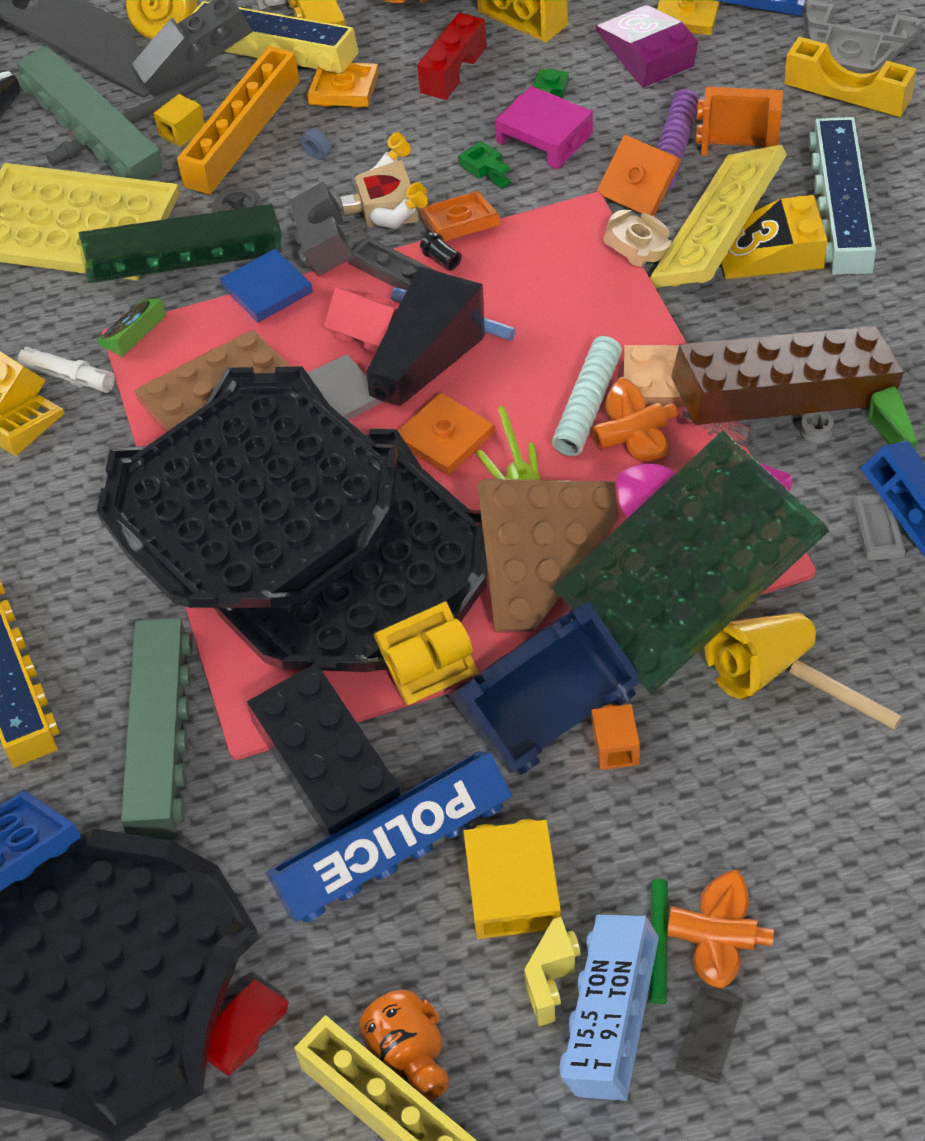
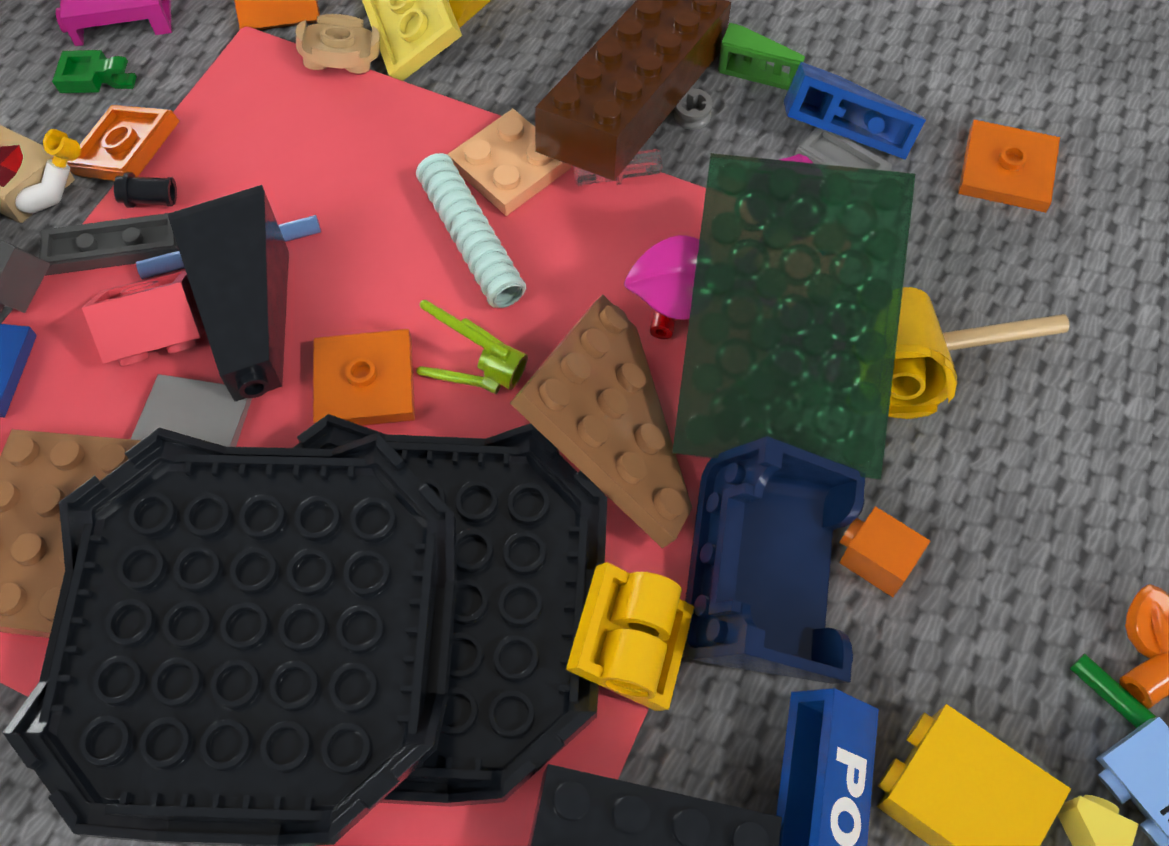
camera: 50 degrees left, 10 degrees up
(634, 423) = (545, 224): orange plant -> none

